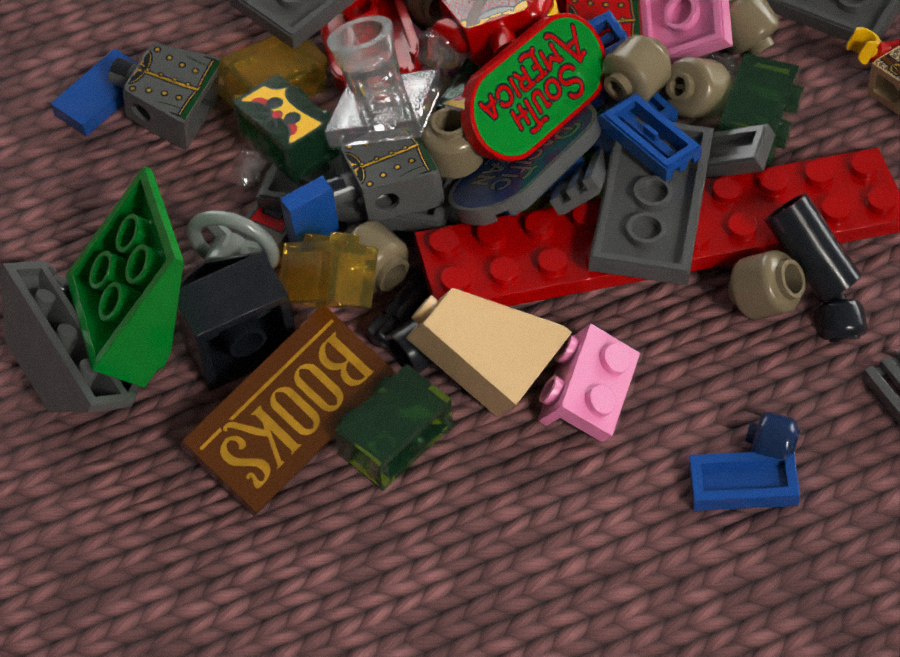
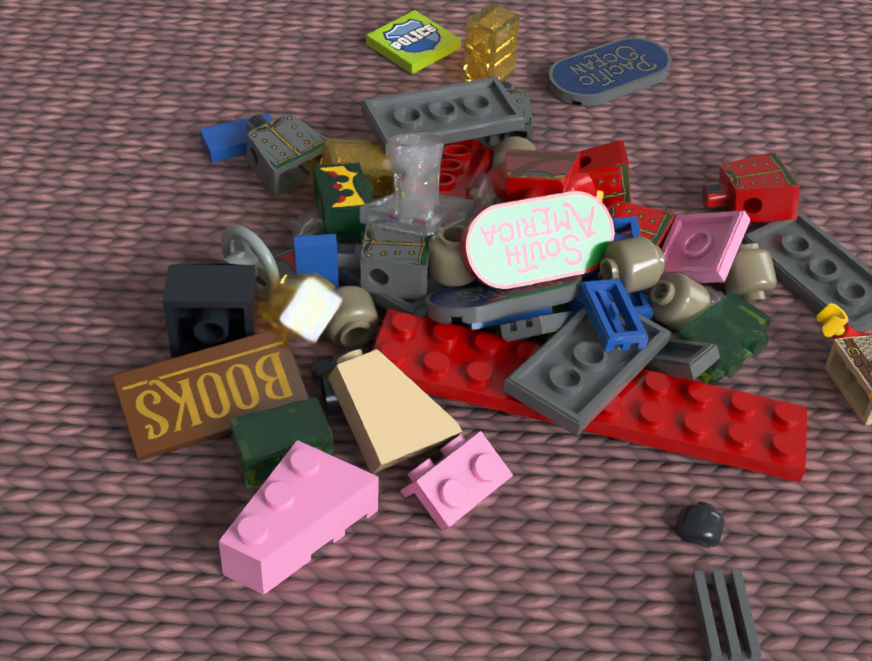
camera: 20 degrees right, 10 degrees down
(49, 343) = (91, 277): dark grey wedge -> none
(129, 286) = (141, 256): green slope -> none
(462, 492) = (294, 515): none -> bright pink wedge
(742, 481) = (537, 613): blue tile -> none
(766, 284) = (646, 467): dark tan head -> none
(773, 436) = (582, 591): dark blue piece -> none
(813, 246) = (701, 453): black pin -> none

